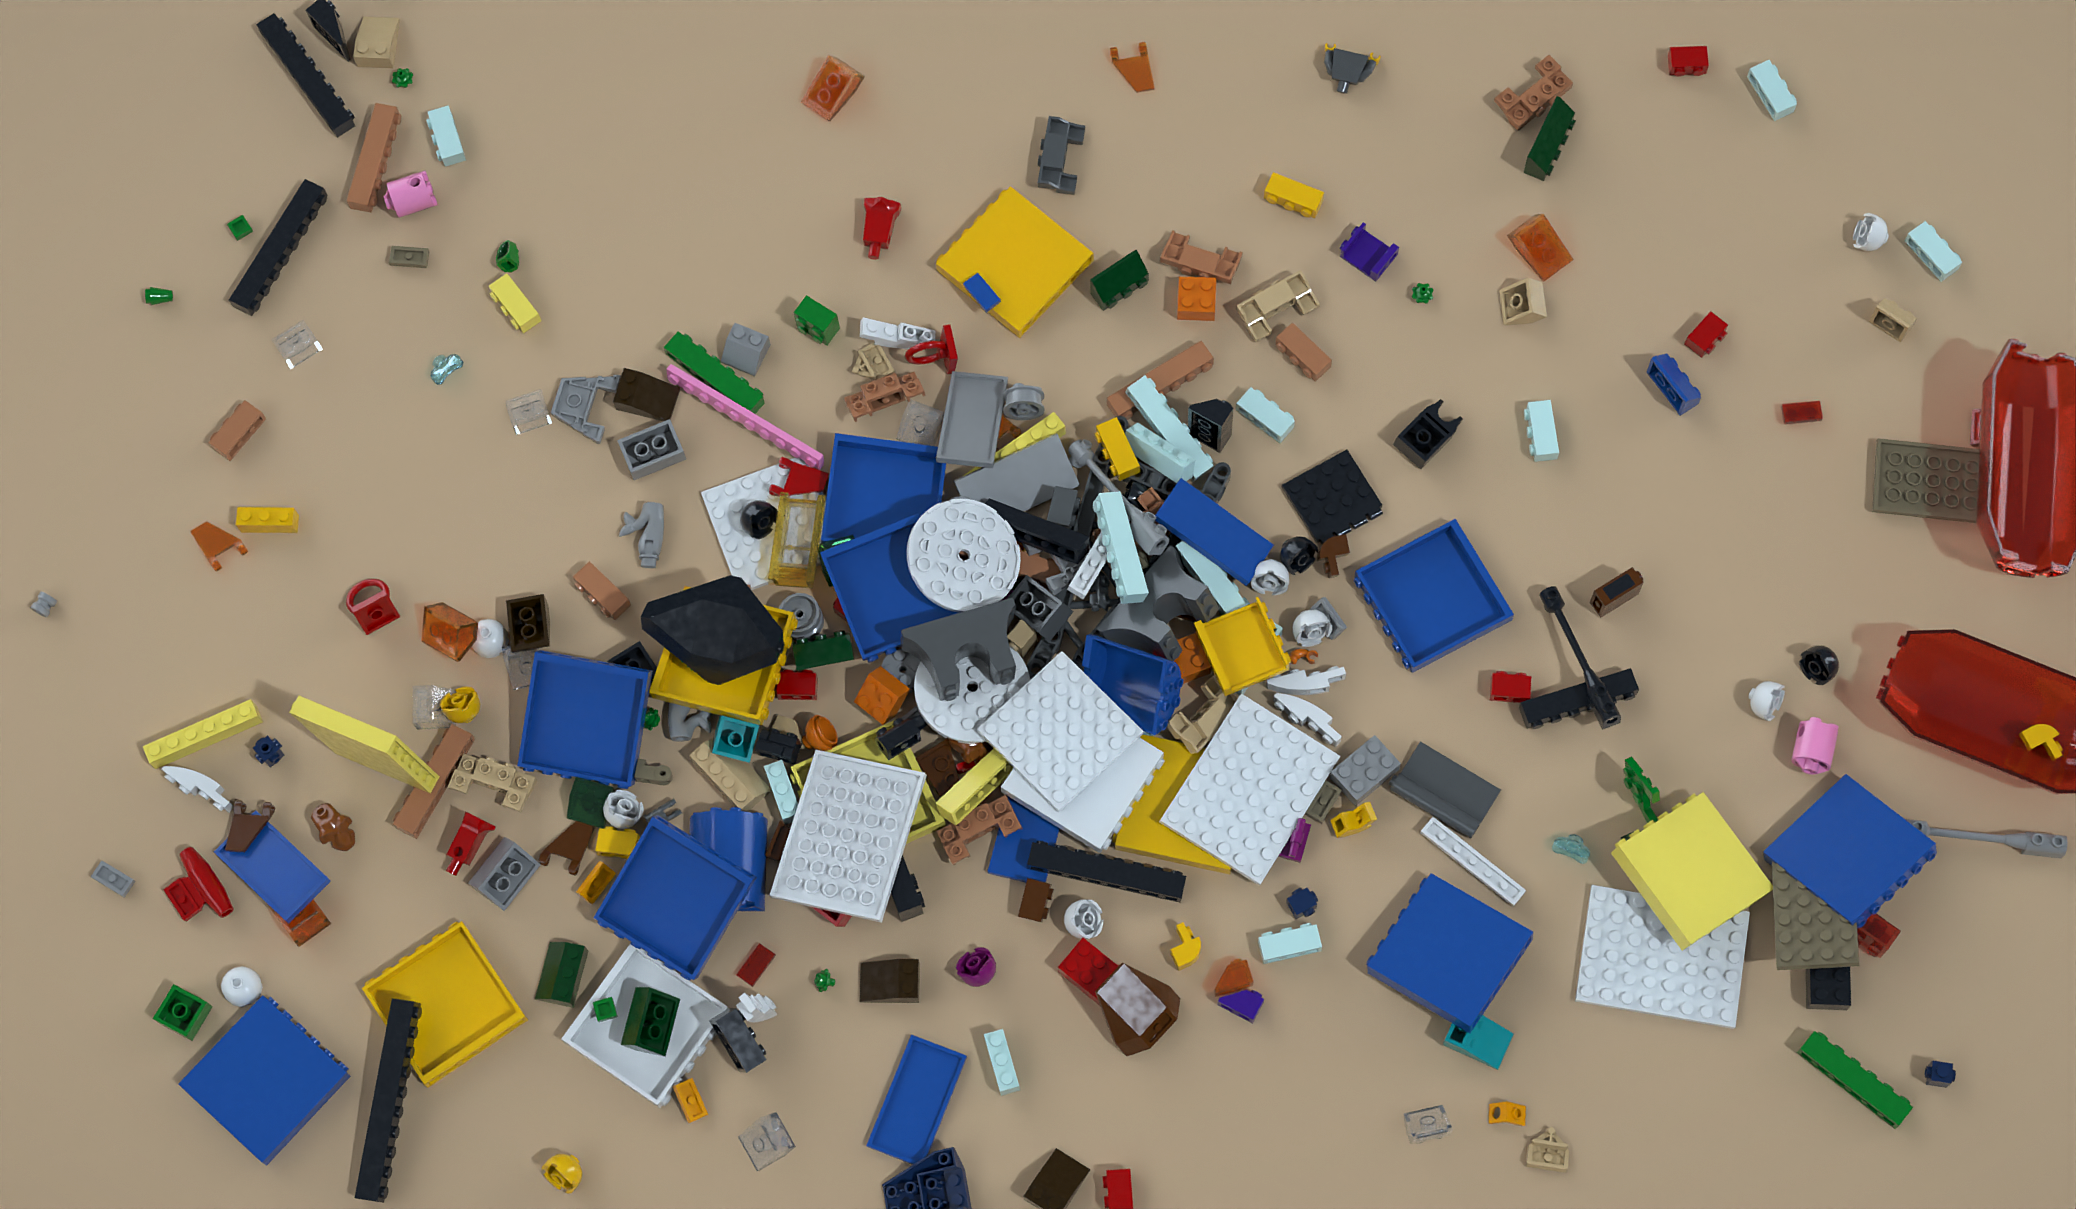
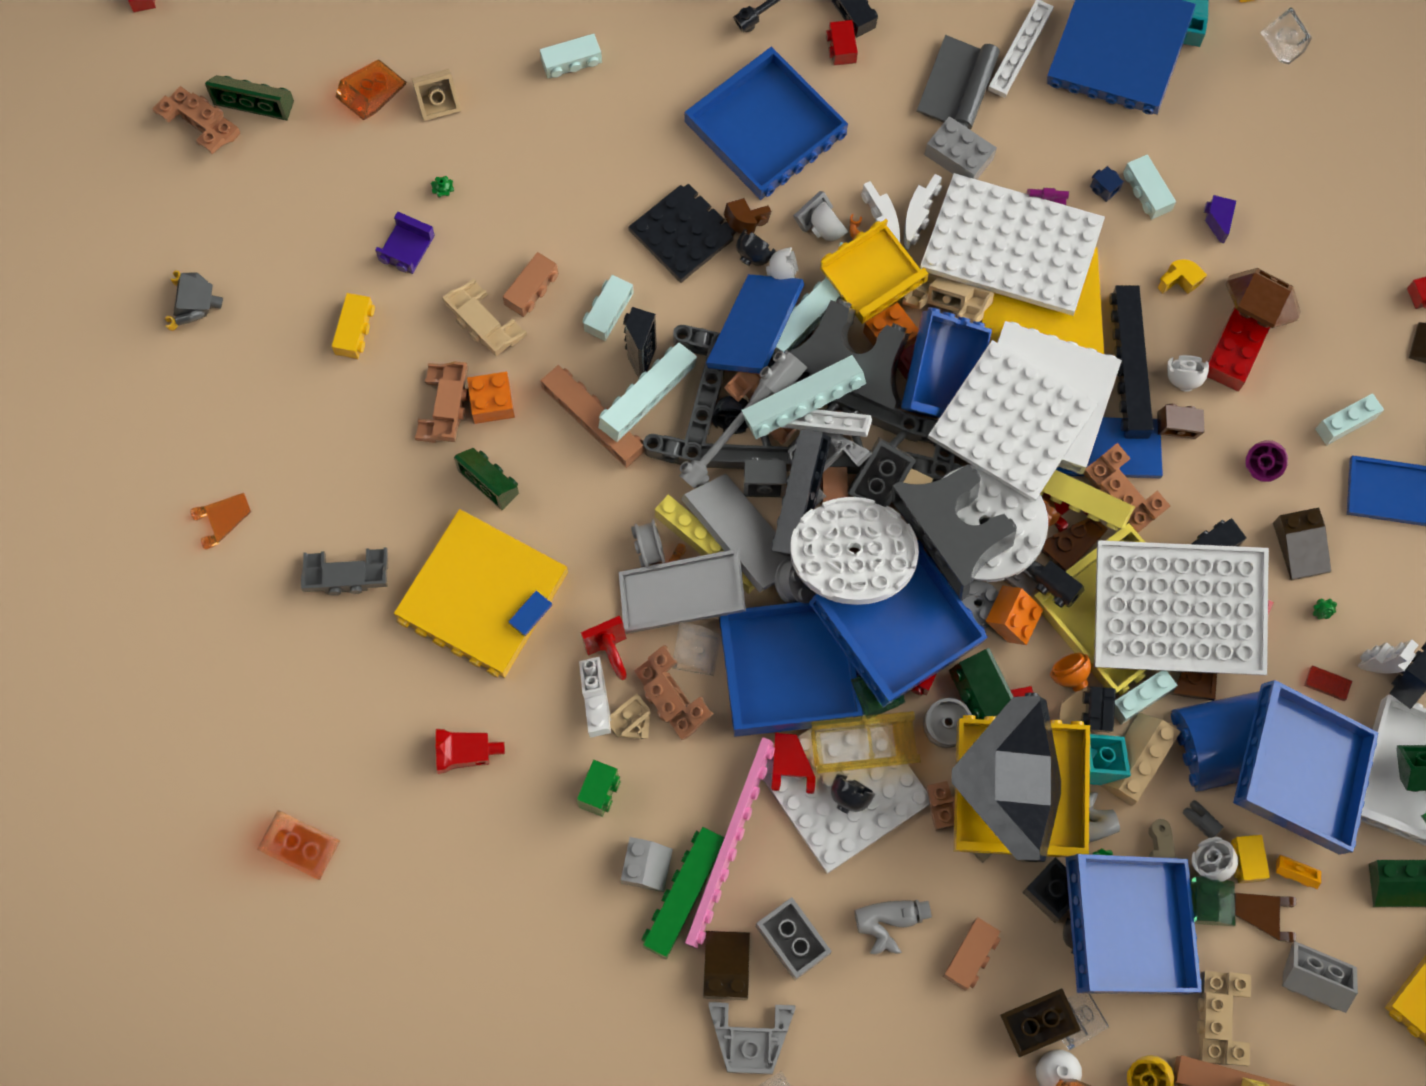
camera: 110 degrees left, 0 degrees up
(467, 841) = (1295, 1024): red piece -> none
(1117, 449) = (685, 434): yellow brick -> none
(1160, 453) = (679, 395): light aqua brick -> none
(1235, 978) = (1198, 229): clear orange slope -> none
(1323, 802) = (1001, 179): dark tan plate -> none
(1354, 821) = (1012, 152): yellow brick -> none
(1431, 430) = (599, 153): black brick -> none

